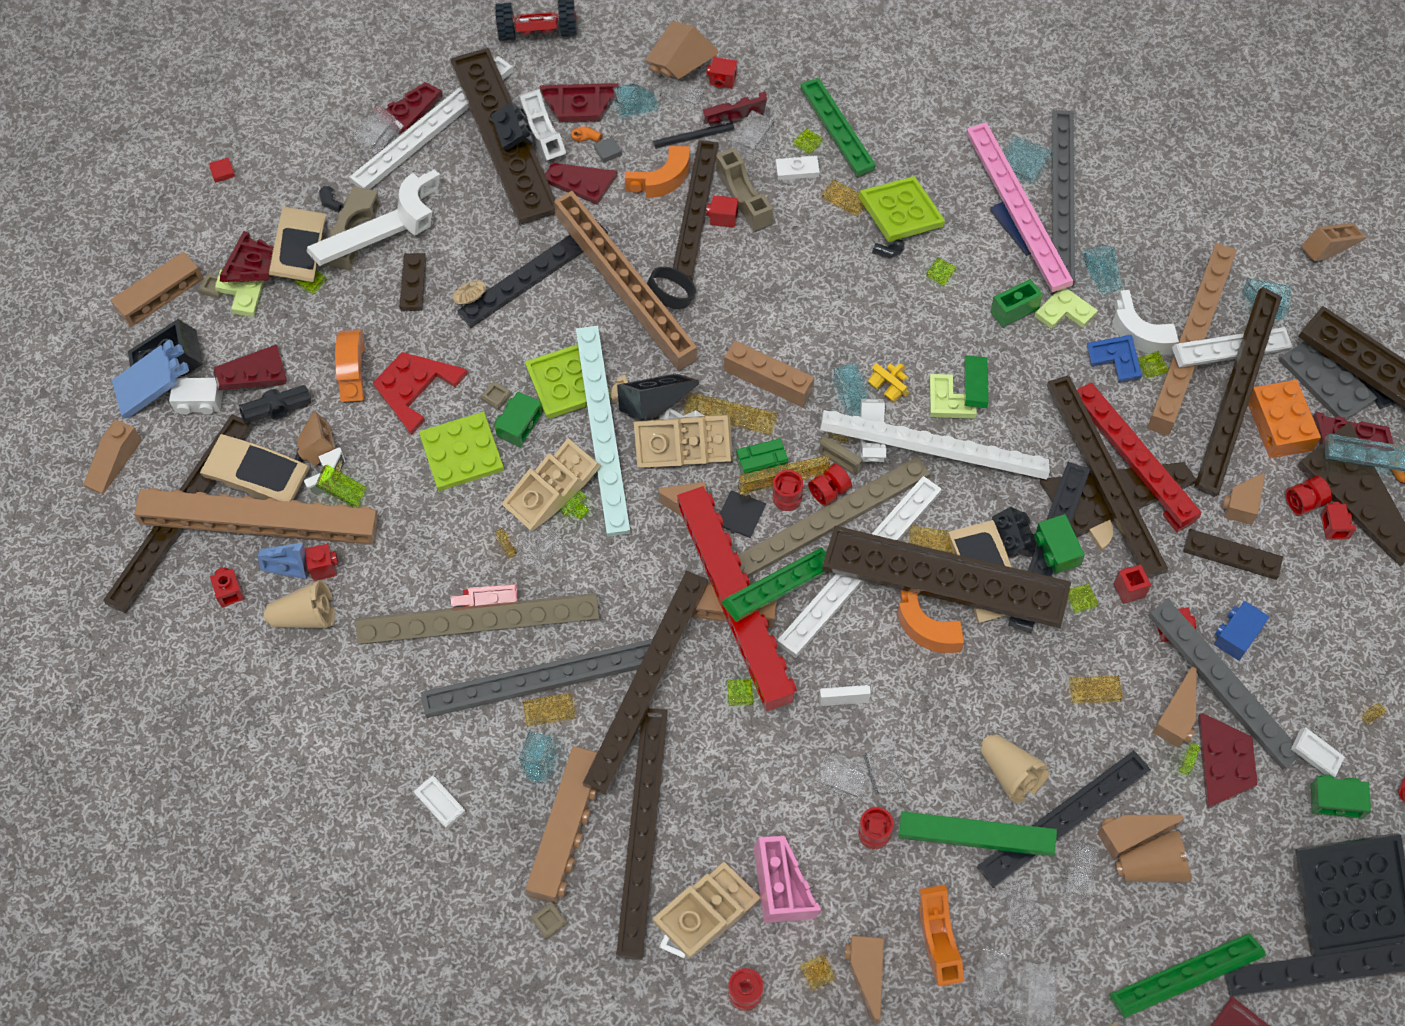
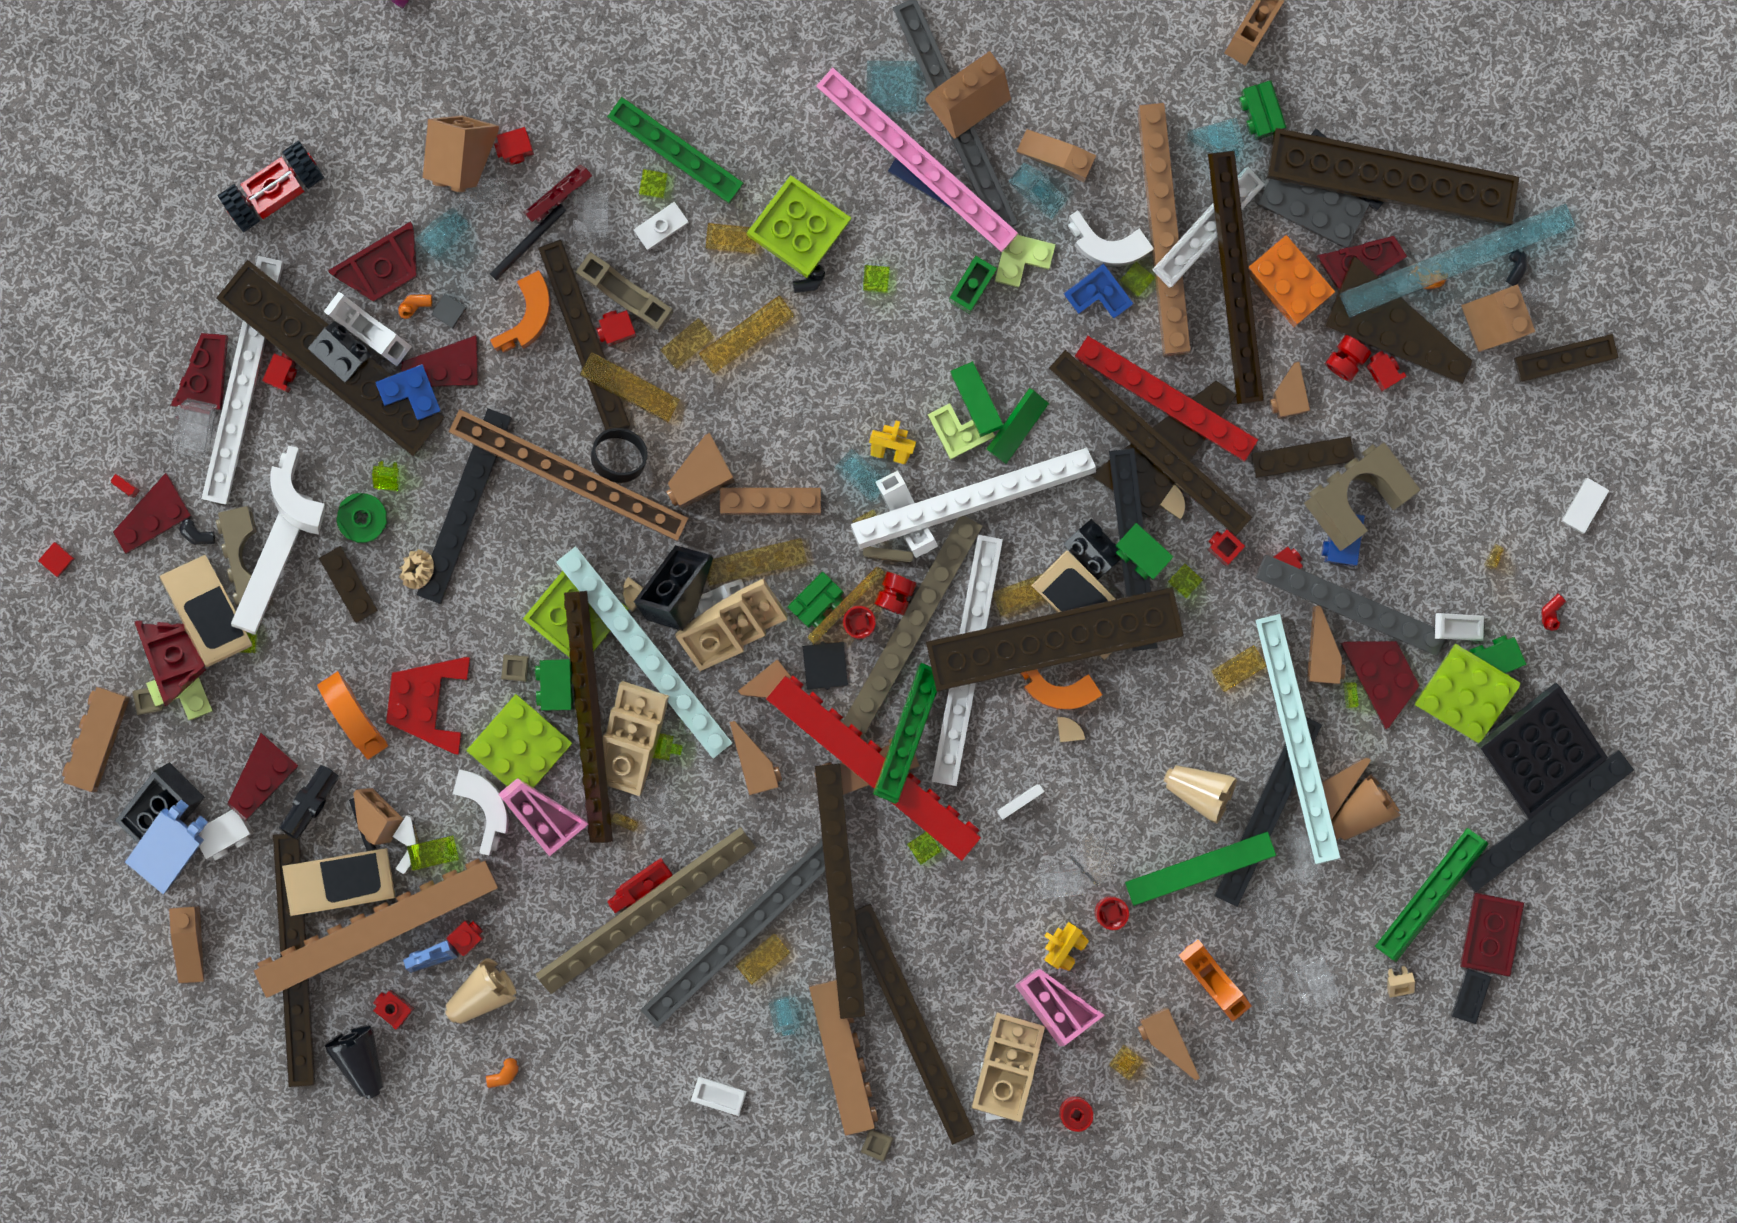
camera: 30 degrees left, 25 degrees up
(170, 607) = (358, 1060): none -> black cone
(277, 687) = (506, 1074): none -> orange arm
(303, 145) = (124, 486): none -> red tile
(307, 174) = (153, 515): none -> dark red wing
(411, 480) = (495, 809): none -> white arch
(443, 503) = (542, 817): none -> bright pink wedge
(453, 254) = (347, 518): none -> green plate
(461, 129) = (280, 372): none -> red brick
(489, 225) = (386, 477): none -> clear neon green tile
(525, 453) = (588, 717): none -> dark brown plate
(548, 173) = (412, 385): none -> blue plate
(637, 556) = (756, 766): none -> medium nougat slope
(708, 252) = (629, 387): none -> clear yellow tile
(722, 324) = (699, 475): none -> medium nougat slope
(769, 247) = (687, 343): none -> clear yellow tile
(818, 261) = (746, 334): none -> clear yellow tile
(828, 832) = (1061, 944): none -> yellow hips
(918, 663) = (1069, 730): none -> tan tile
(999, 417) = (1017, 426): none -> green tile
(1083, 180) = (970, 95): none -> medium nougat slope
(1122, 770) = (1298, 739): none -> light aqua plate
(1134, 255) = (1057, 154): none -> medium nougat slope
(1295, 585) = (1331, 505): none -> dark tan arch
(1302, 807) = (1467, 693): none -> lime plate
(1314, 293) = (1262, 109): none -> green brick

